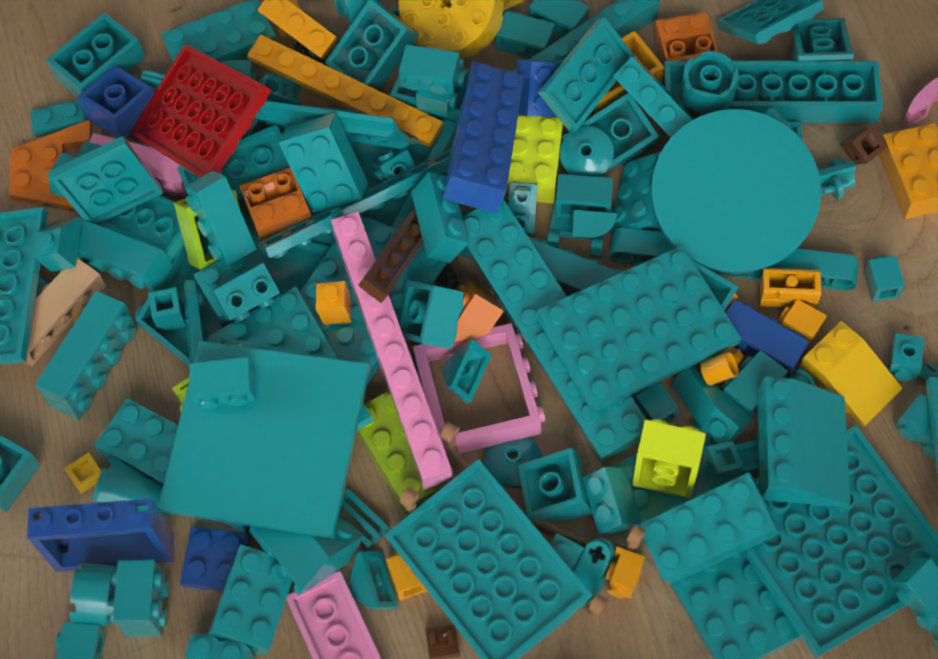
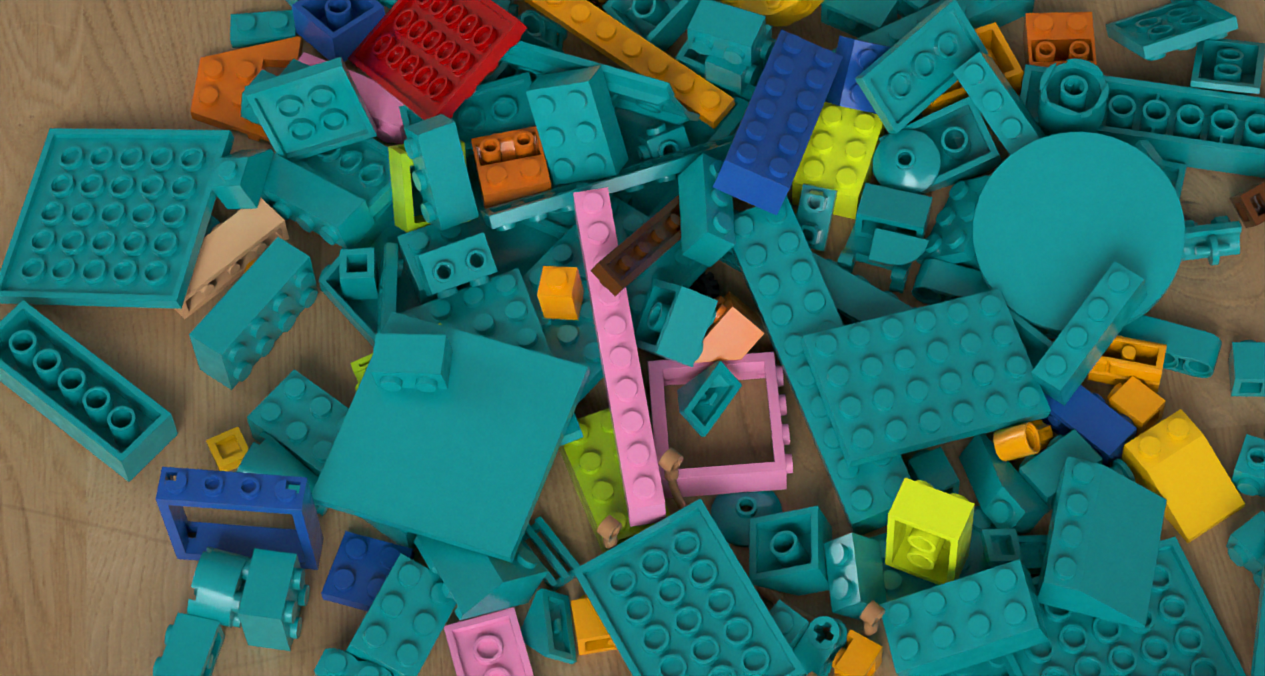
camera: 10 degrees right, 5 degrees down
(761, 271) = (1089, 333): none -> teal brick

